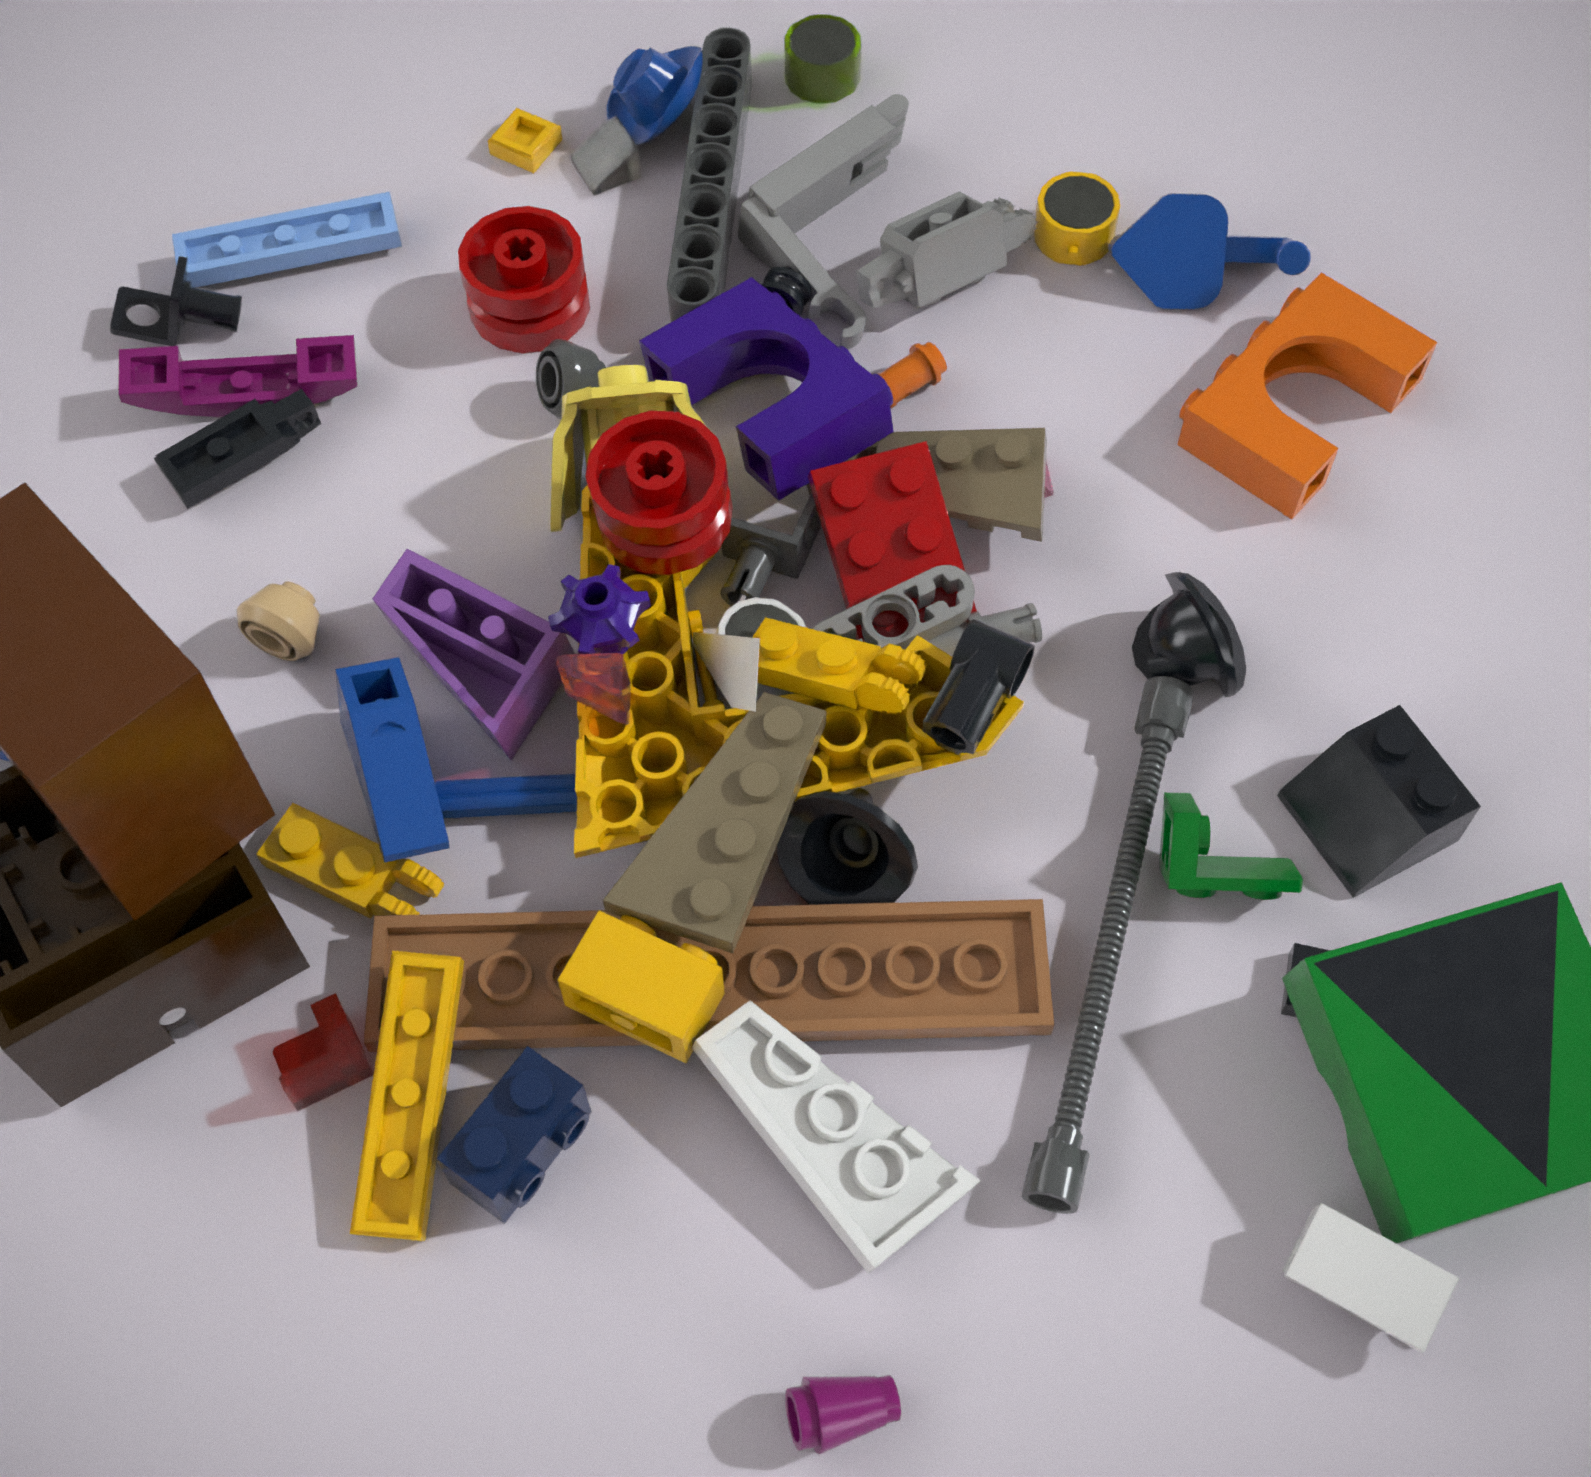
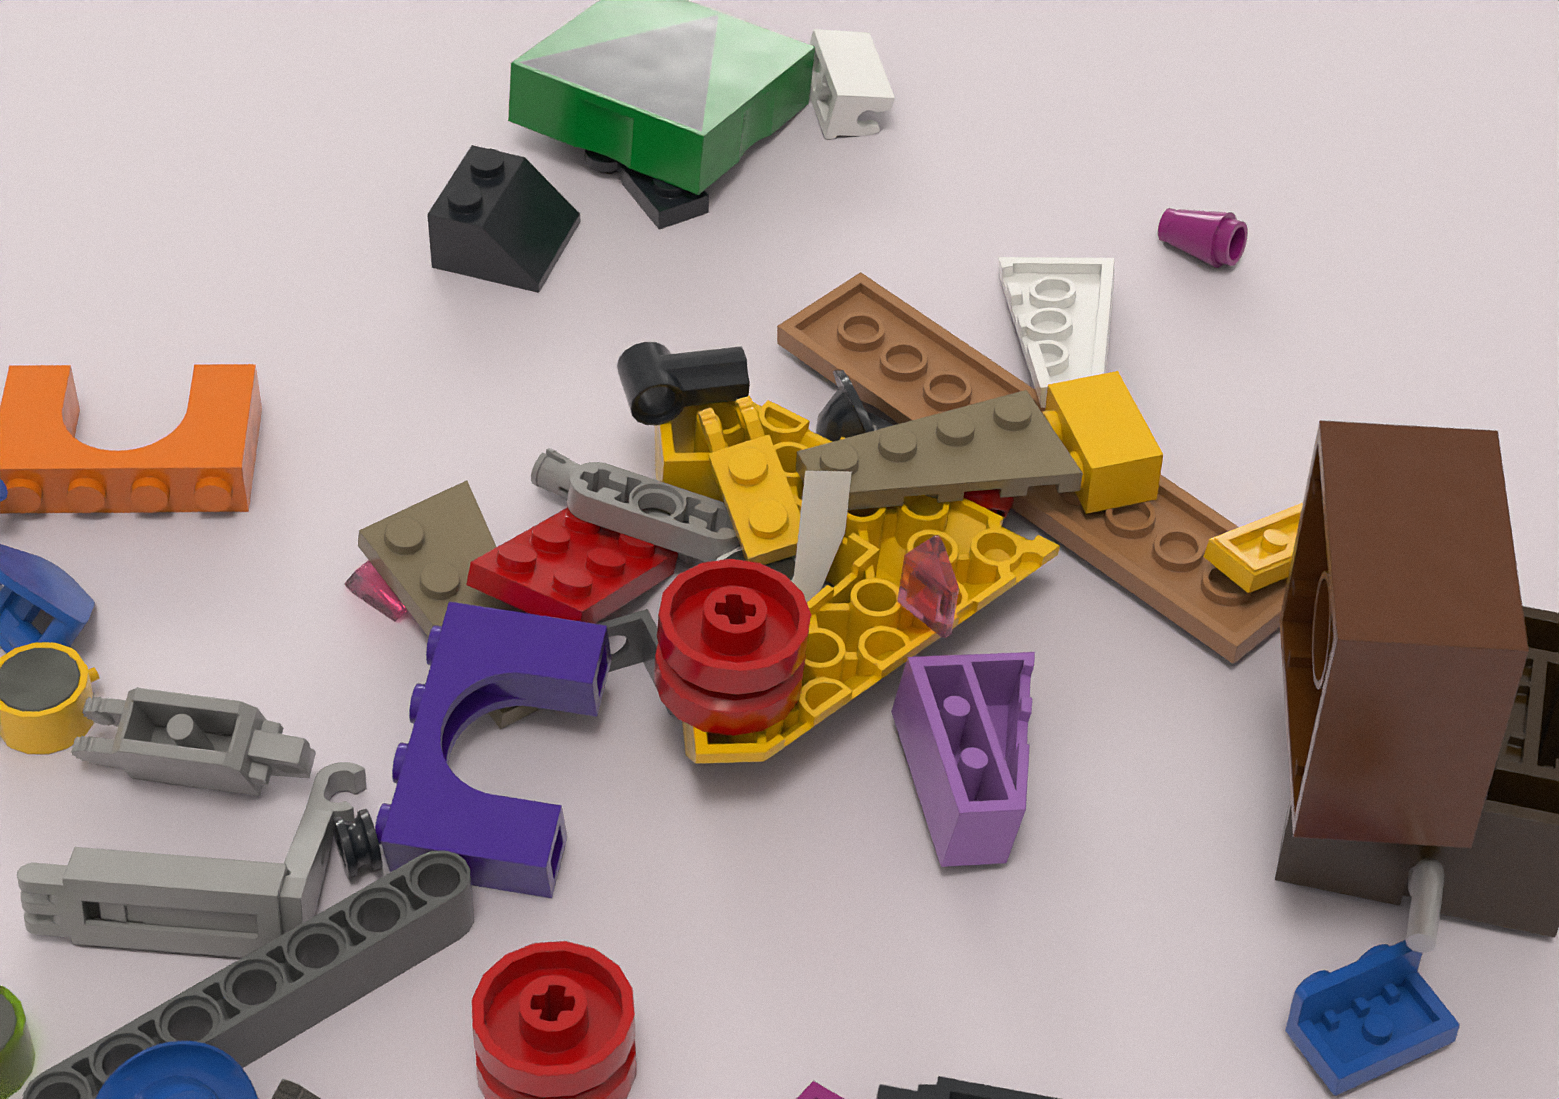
camera: 135 degrees left, 15 degrees down
(280, 620) = (1101, 916): tan cone -> none
(342, 864) = (1220, 718): yellow hinge -> none
(390, 758) = (1119, 728): blue slope -> none
(507, 796) = (1051, 666): blue axle -> none
(516, 1135) = (1255, 460): dark blue brick -> none
(563, 369) = (632, 915): dark grey cone -> none
(592, 411) = (660, 807): light yellow piece -> none
(600, 612) = (881, 610): dark purple rock -> none
(914, 371) = (359, 698): orange pin -> none
(1058, 1164) = (554, 357): dark grey hose -> none
(1187, 835) = (644, 266): green bracket -> none
(1190, 638) = (473, 366): black helmet -> none

